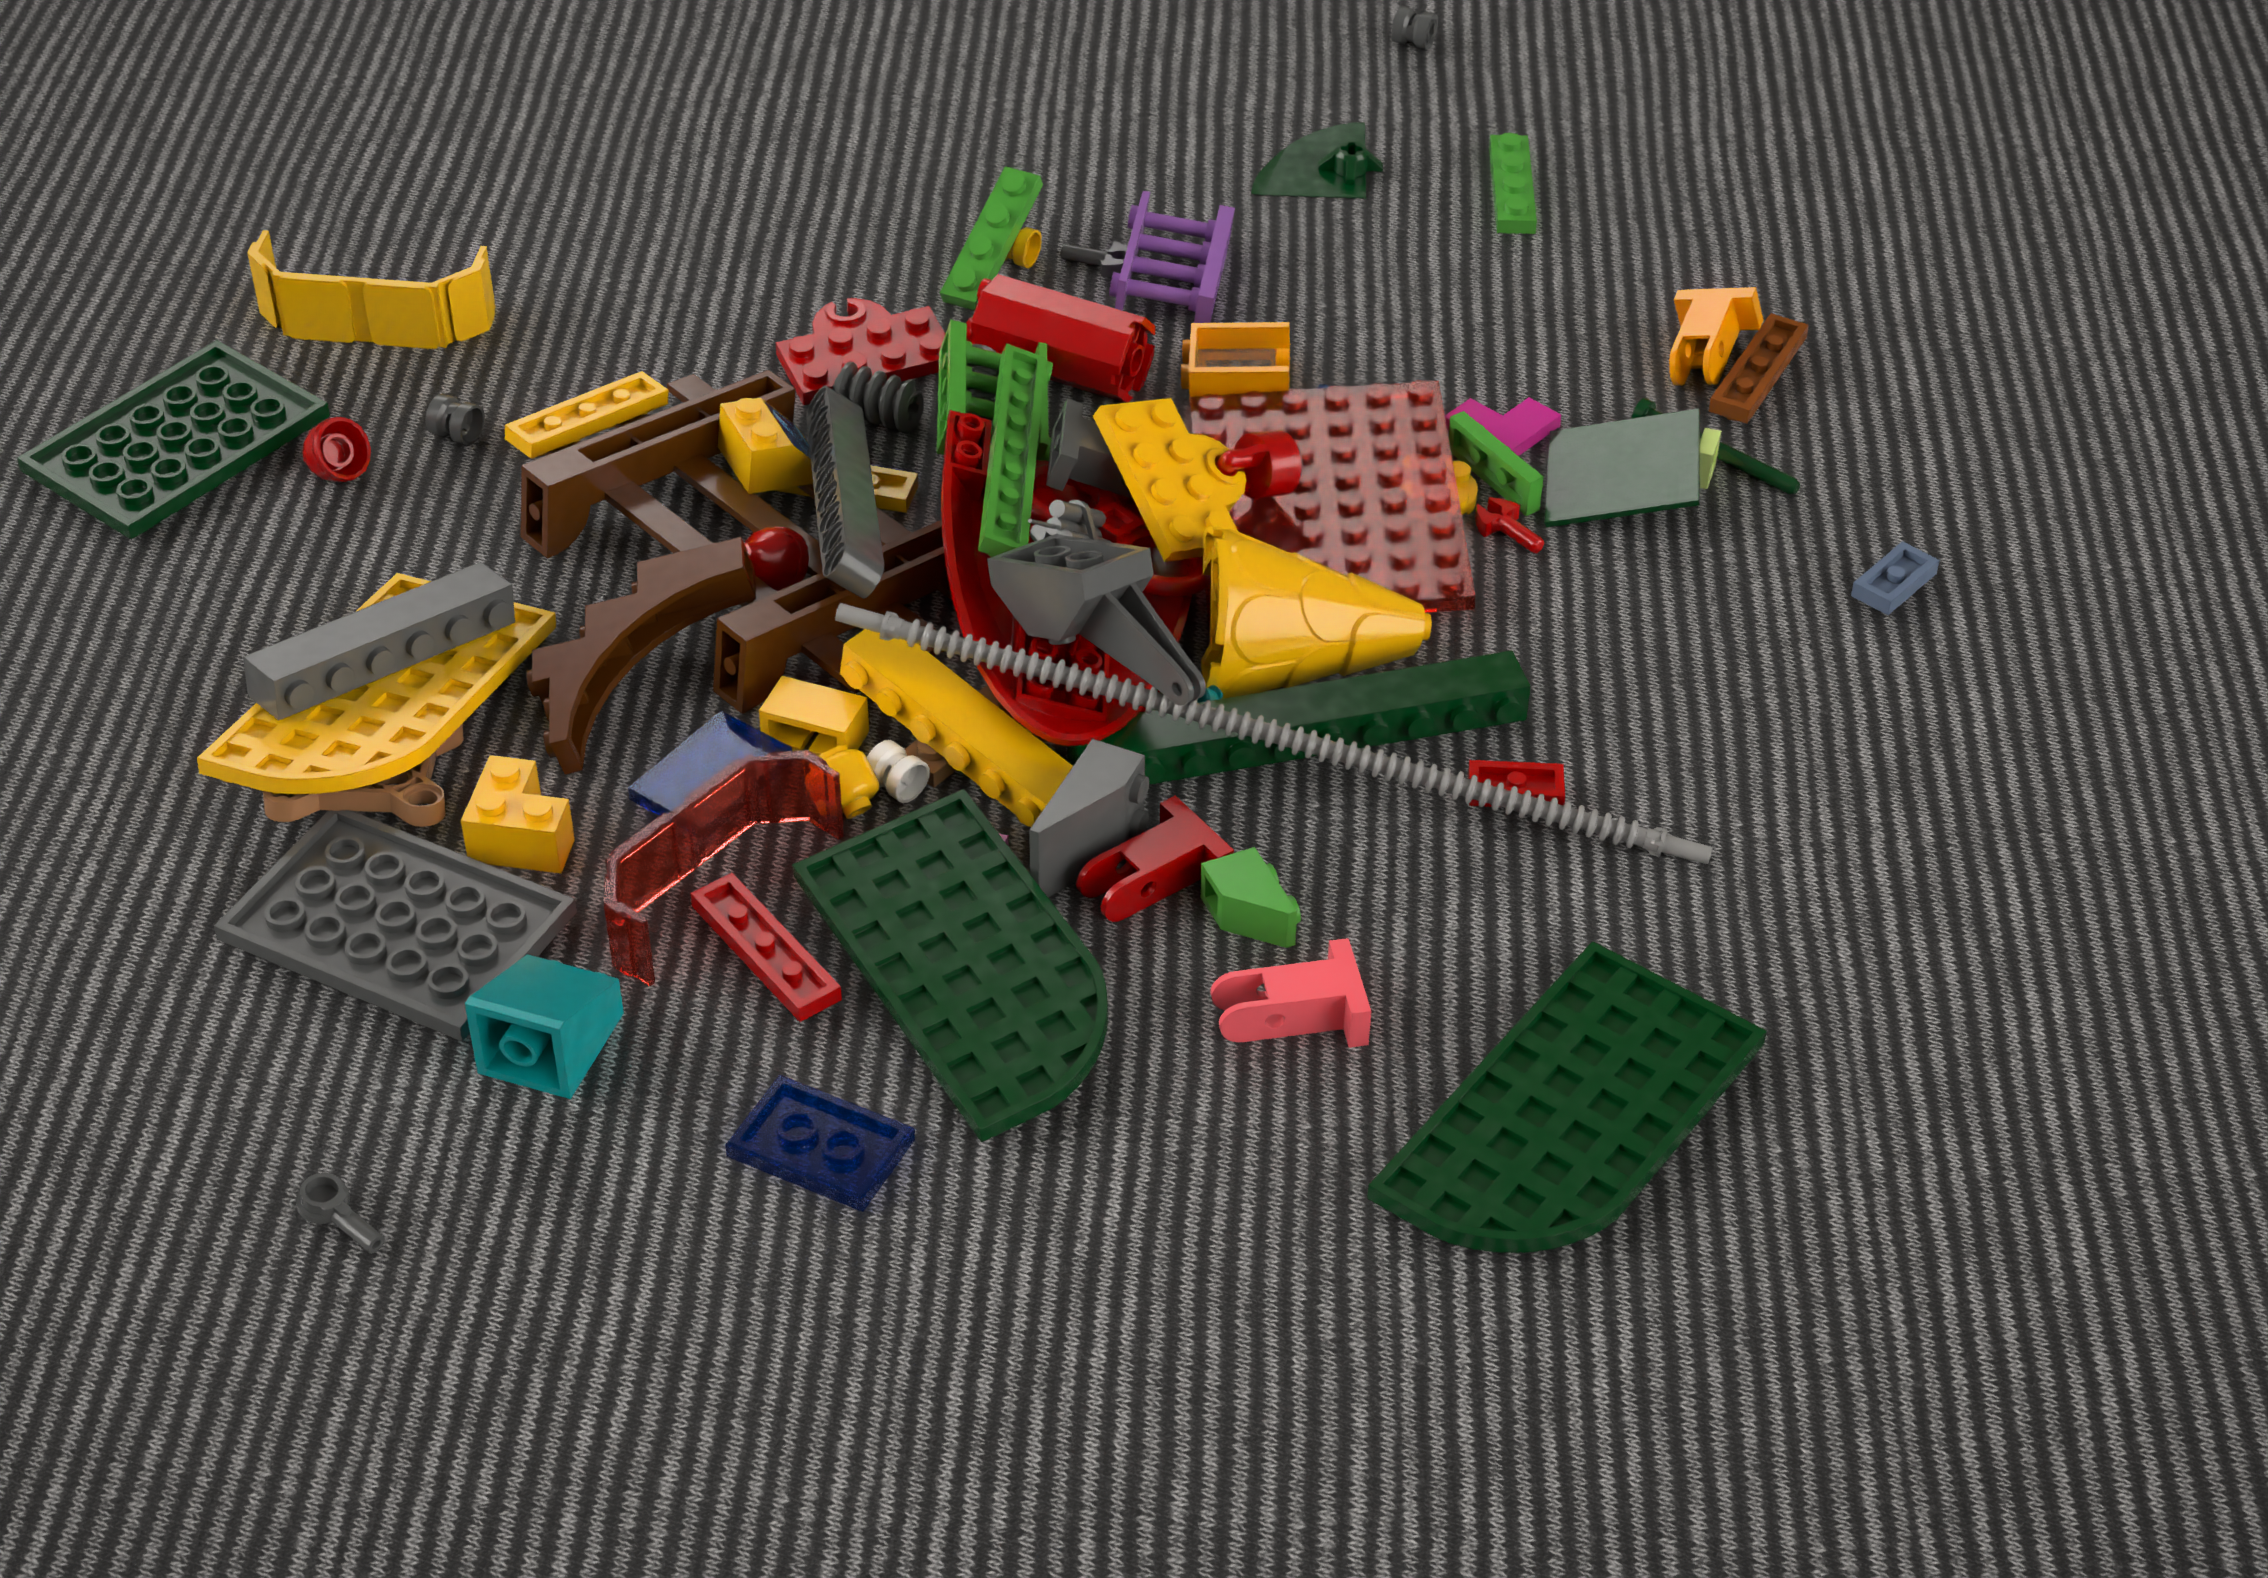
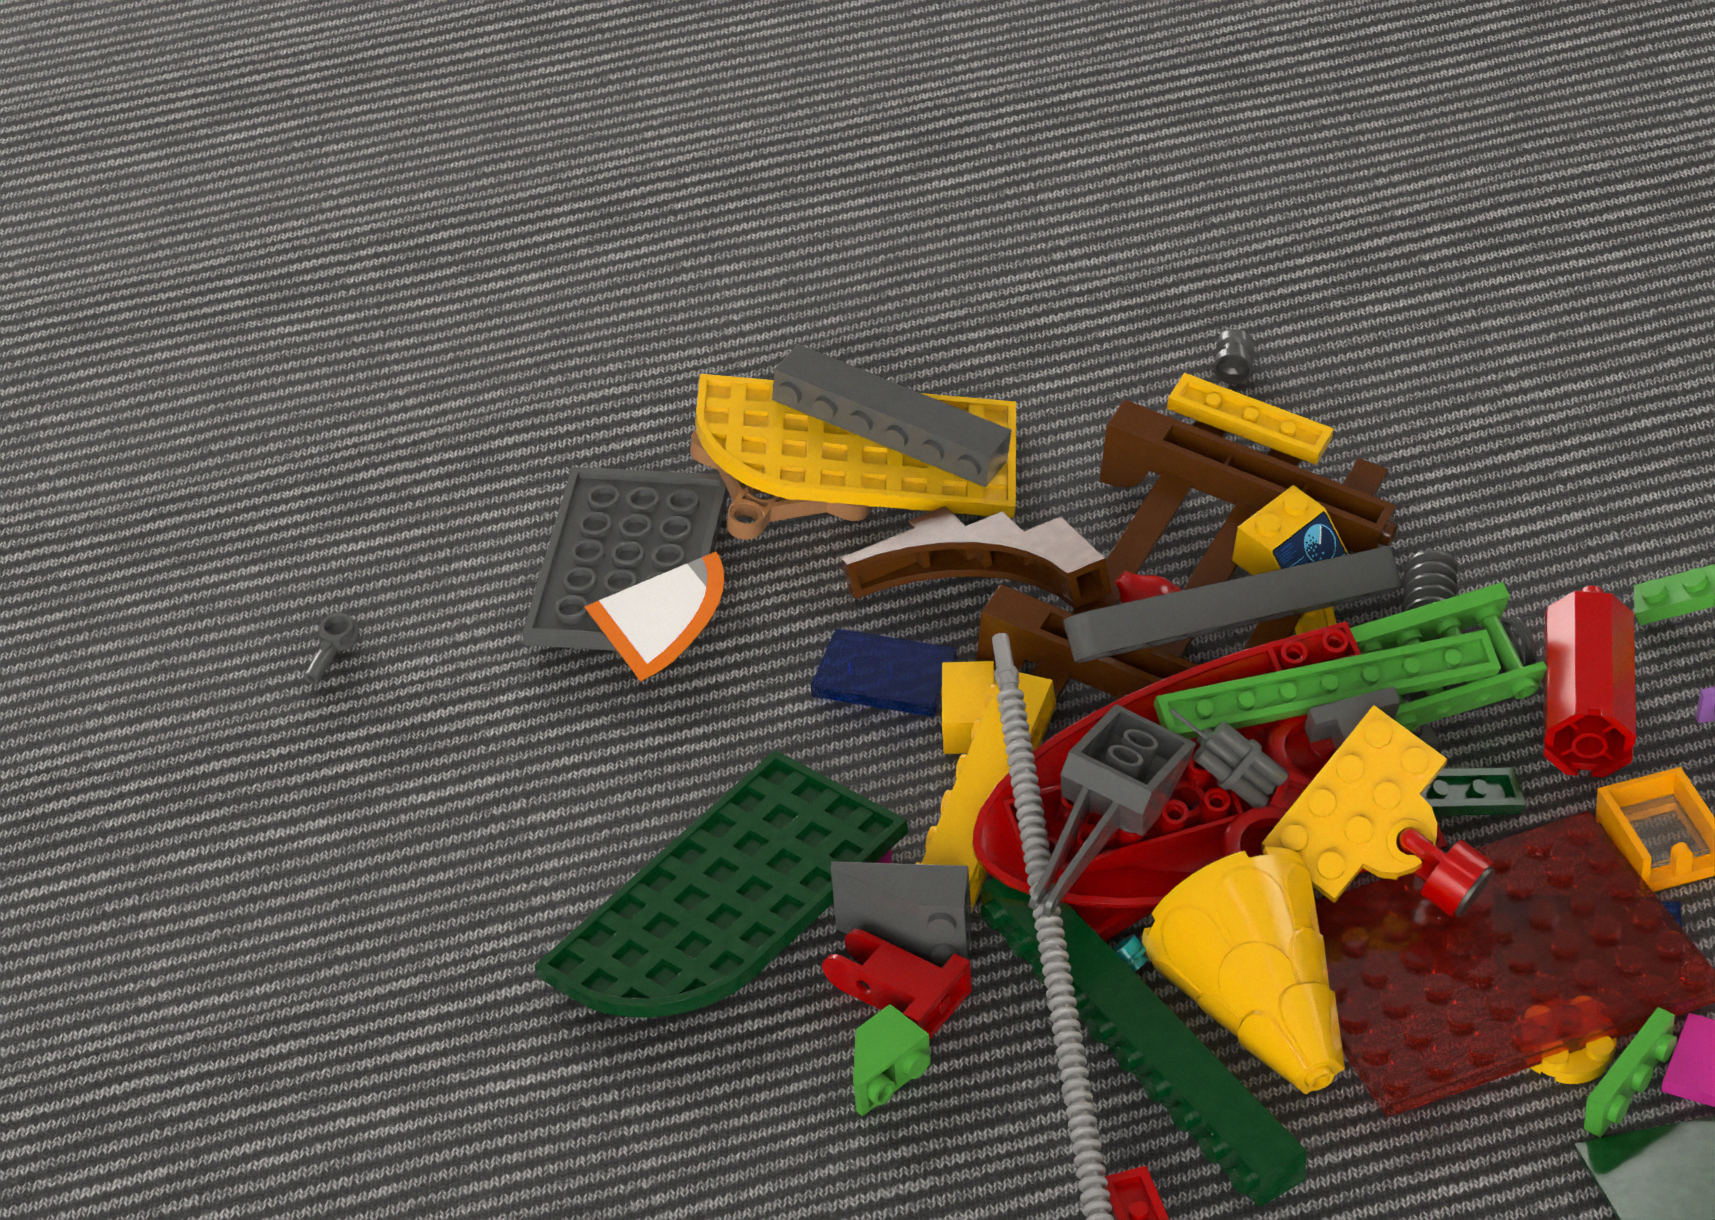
camera: 75 degrees right, 0 degrees up
(173, 438) = (1117, 220): dark green plate -> none
(337, 450) = (1139, 307): red helmet -> none
(373, 308) = (1361, 290): yellow windscreen -> none
(512, 822) = (763, 569): yellow brick -> none
(516, 907) = (661, 615): none -> sticker
(543, 1023) = (544, 672): teal slope -> none
(744, 793) = (754, 673): clear red windscreen -> none
(766, 947) = (690, 773): red plate -> none
(820, 1142) = (500, 882): clear blue tile -> none
(857, 779) = (897, 749): yellow head -> none
(869, 336) = (1515, 553): plate -> none
(899, 773) = (931, 779): white wheel -> none
(1296, 999) = (778, 1135): coral piece -> none
(1502, 516) = (1540, 1097): red bar -> none

